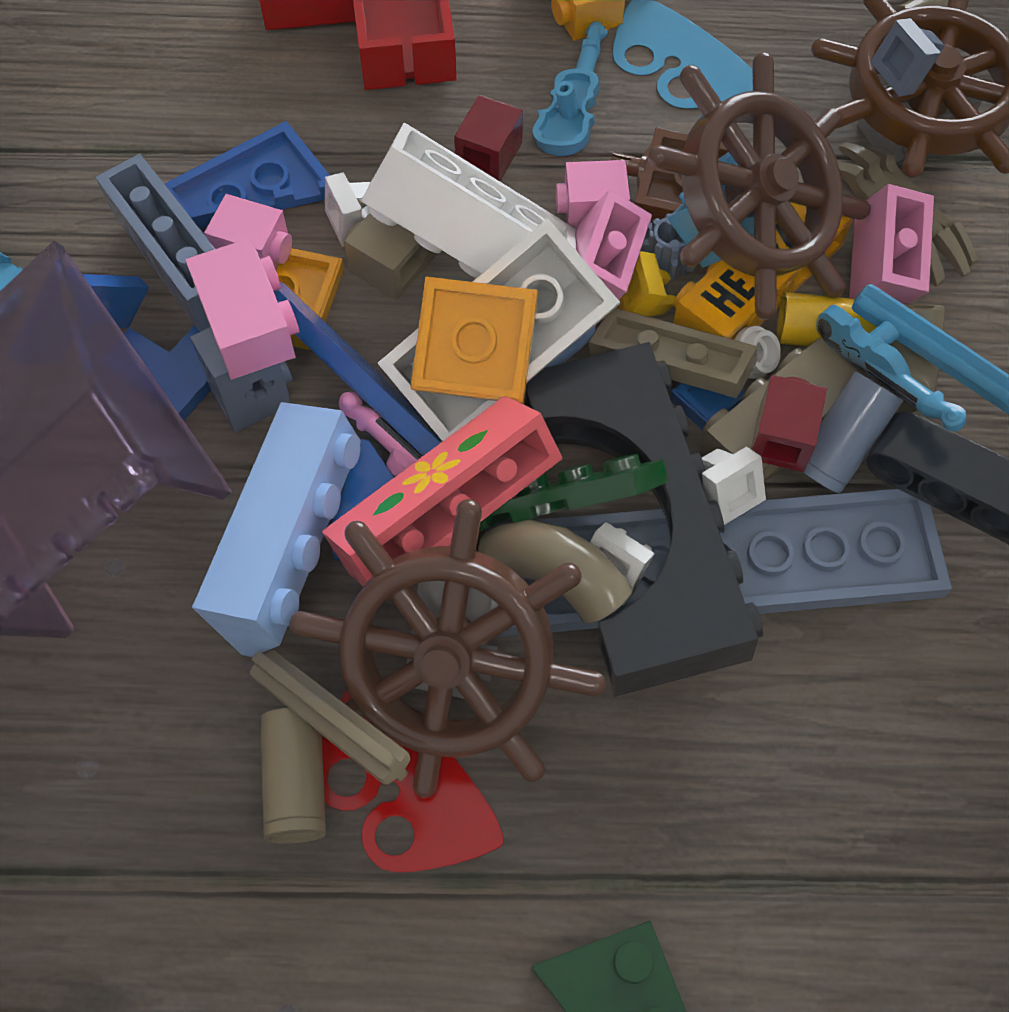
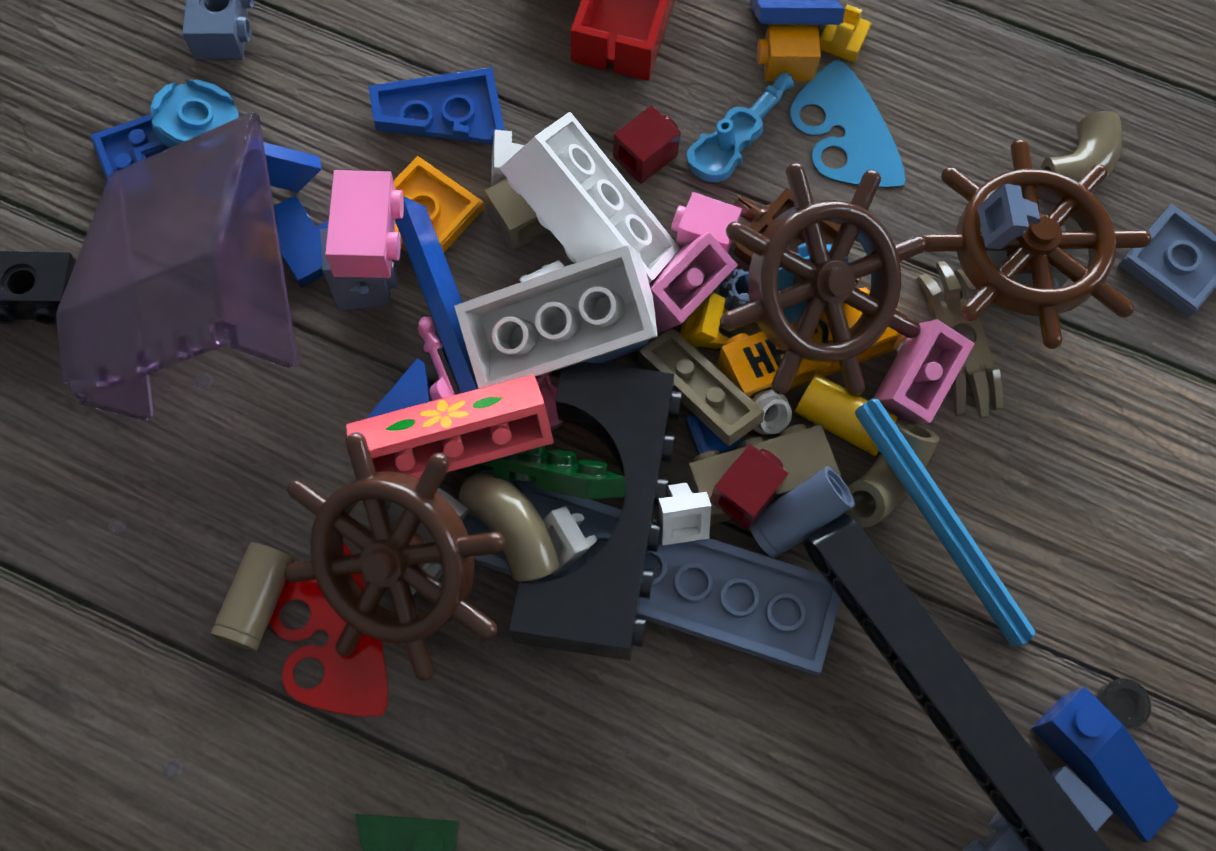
camera: 20 degrees right, 5 degrees up
(158, 229) = (347, 116): sand blue brick -> none
(243, 219) = (413, 157): bright pink brick -> none
(278, 527) = (319, 402): light blue slope -> none
(331, 717) = (288, 568): dark tan axle -> none
(474, 339) = (531, 320): light orange tile -> none
(885, 363) = (851, 474): dark azure piece -> none

